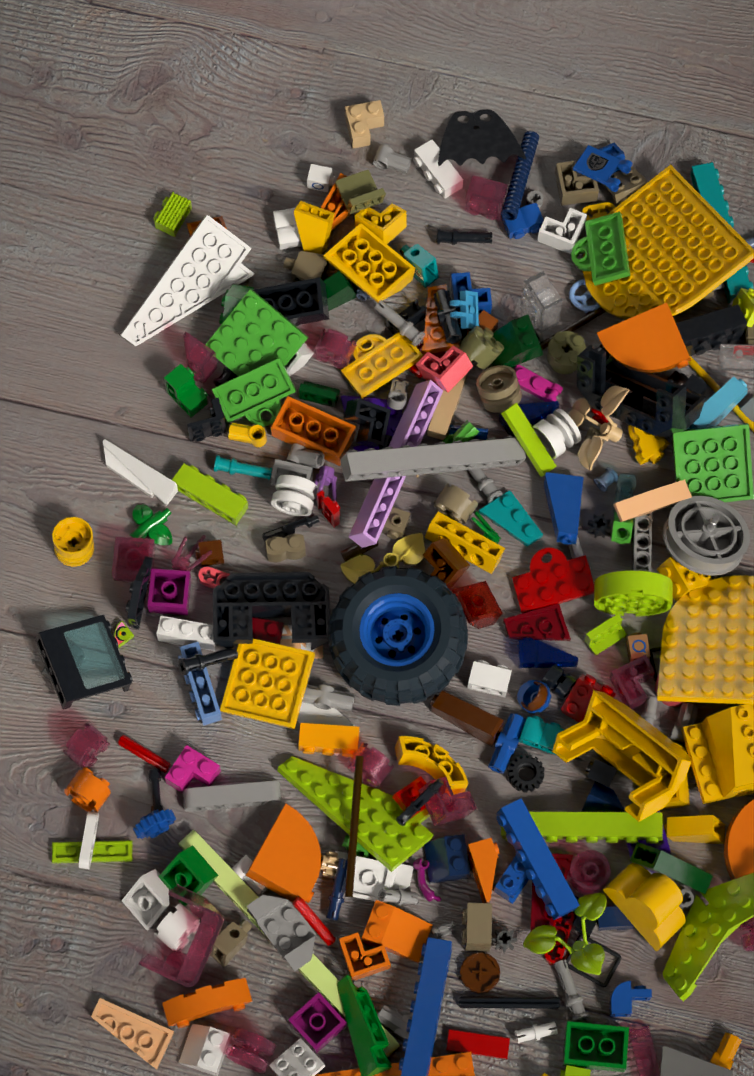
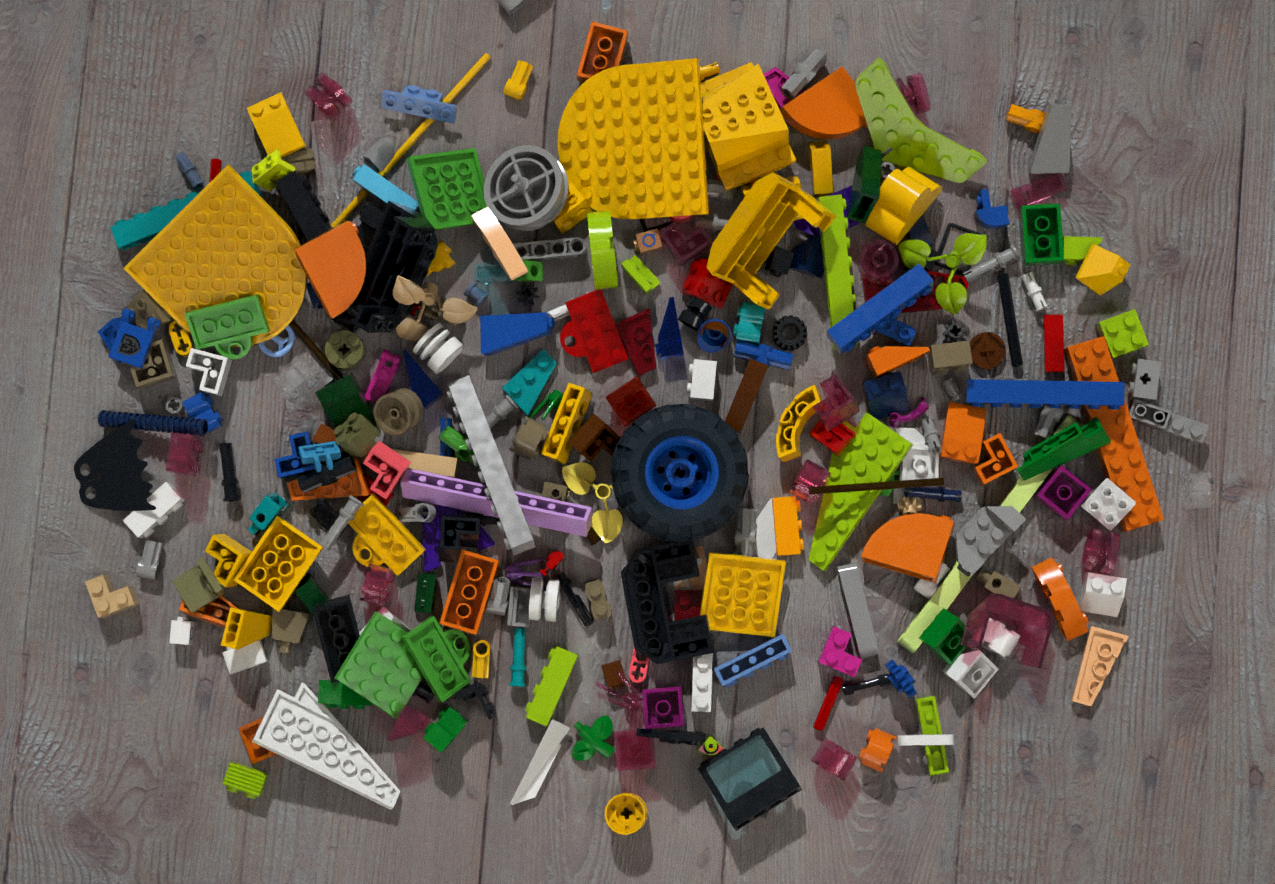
camera: 90 degrees left, 15 degrees up
(199, 662) = (736, 661): black pin -> none
(314, 921) = (968, 511): red axle -> none
(419, 802) = (845, 428): black piece -> none
(528, 439) = (449, 374): lime tile -> none

